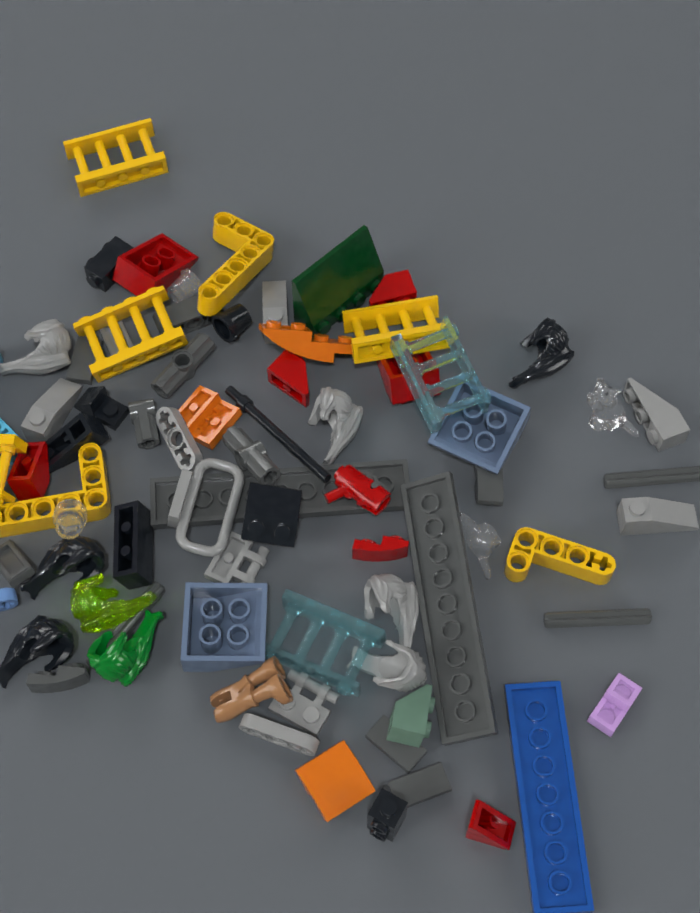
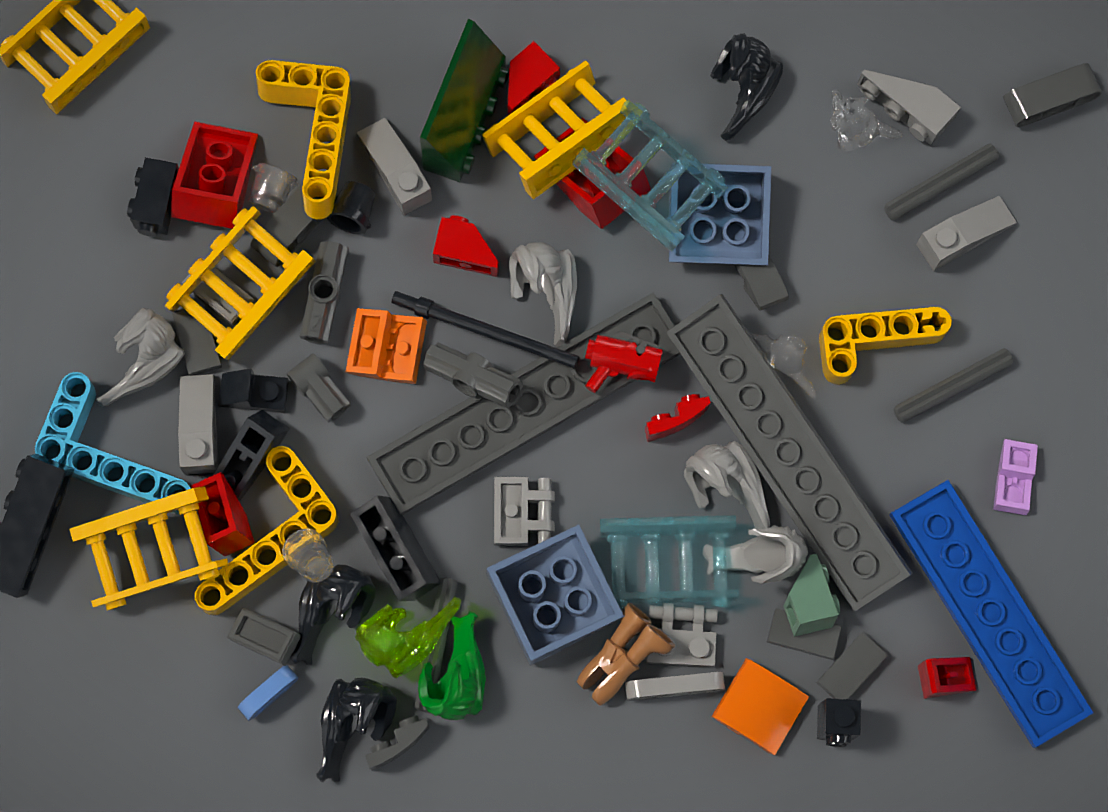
camera: 30 degrees left, 15 degrees up
(169, 434) = (358, 392): light grey beam -> none
(185, 499) = (428, 470): light grey bar -> none
(271, 514) = (537, 439): black slope -> none
(299, 341) = (459, 201): orange slope -> none

